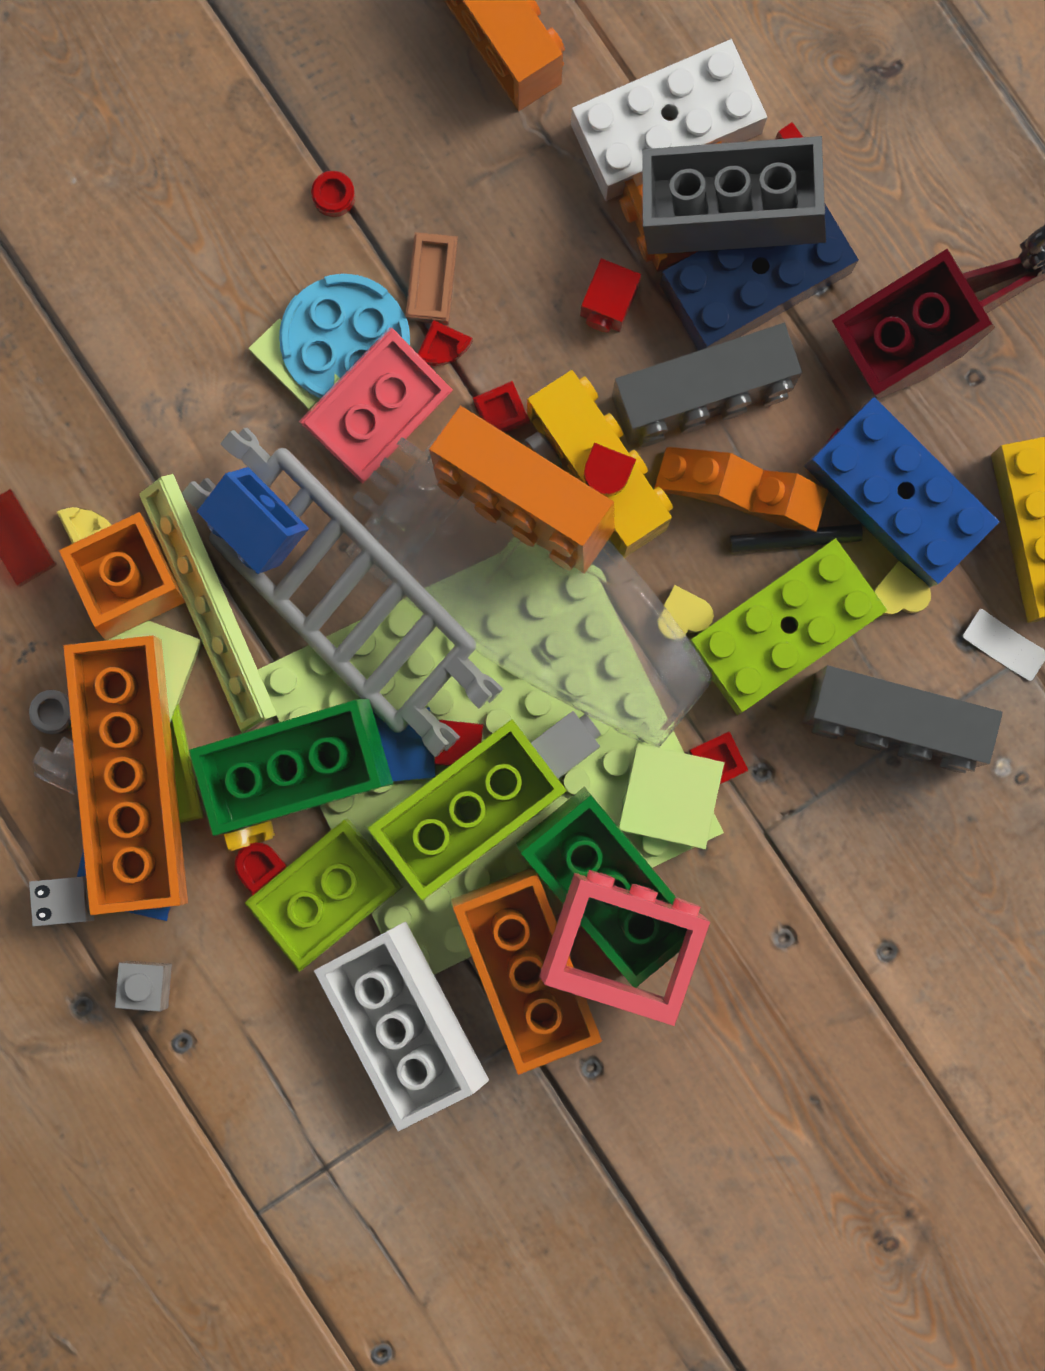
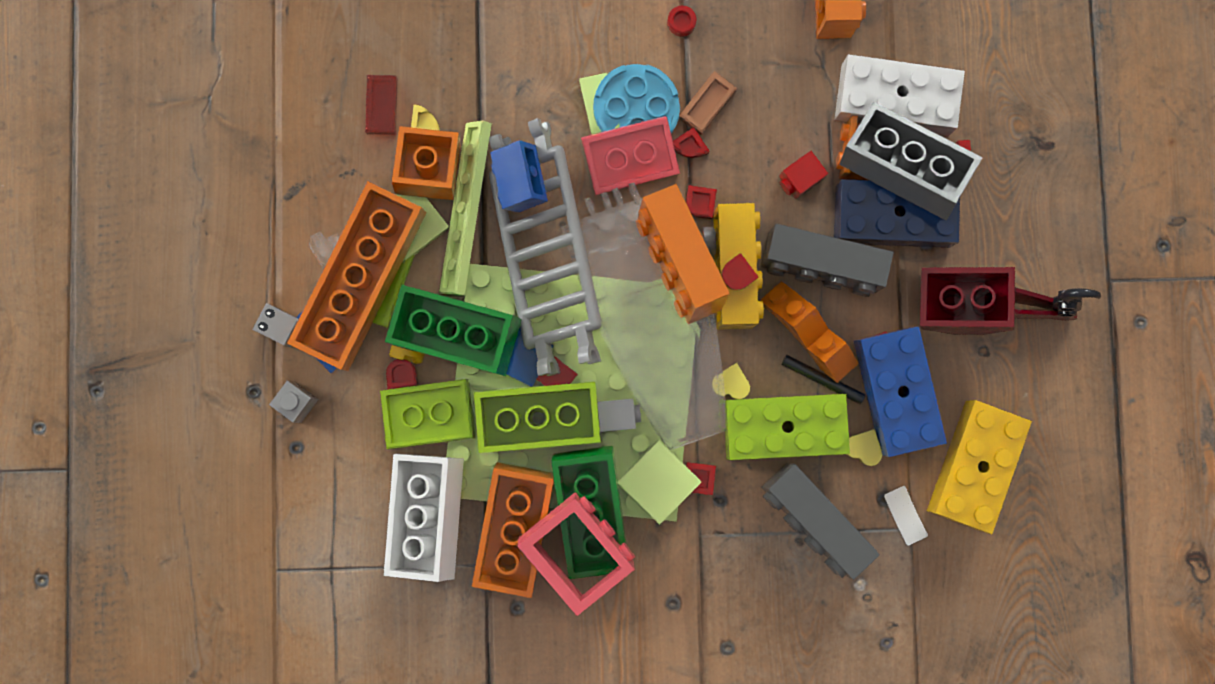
camera: 30 degrees right, 0 degrees up
(50, 712) = (338, 214): light grey tile -> none

